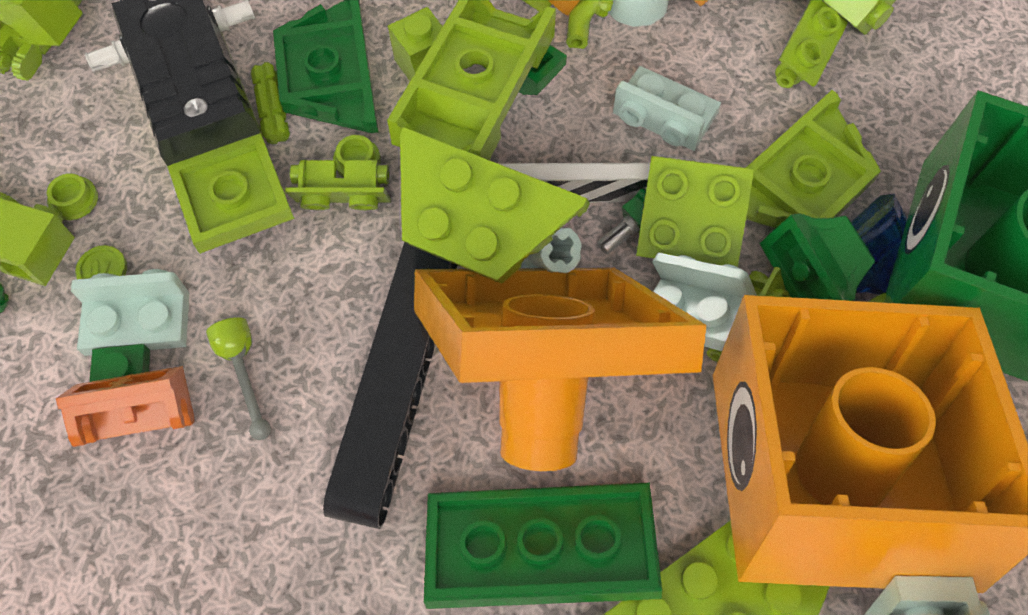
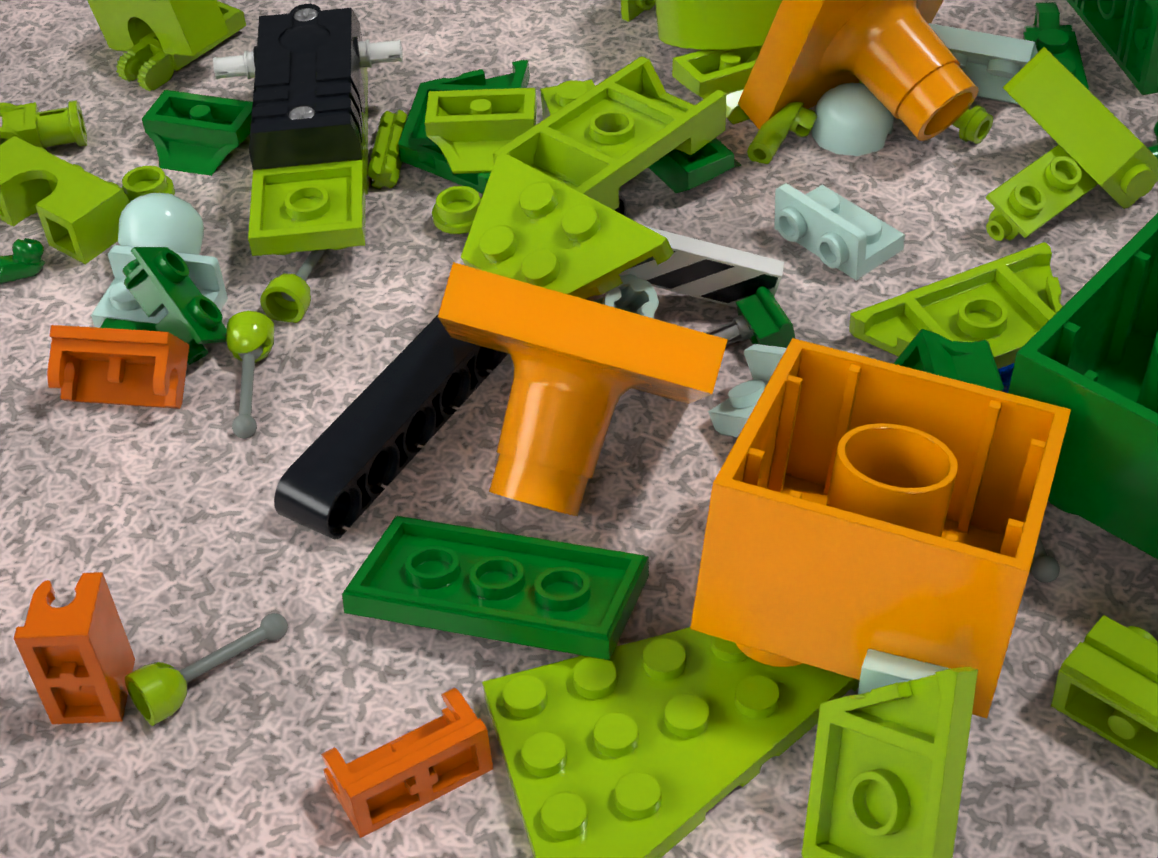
camera: 20 degrees right, 20 degrees down
(92, 121) = (196, 130): none -> green slope
(104, 242) = (161, 222): none -> light aqua hair
(135, 309) = (161, 280): none -> green hinge
(245, 283) = (289, 295): none -> lime hinge
(320, 186) = (405, 224): lime hinge -> none
(351, 75) = (477, 123): none -> lime slope
(695, 210) = (813, 301): lime hinge -> none

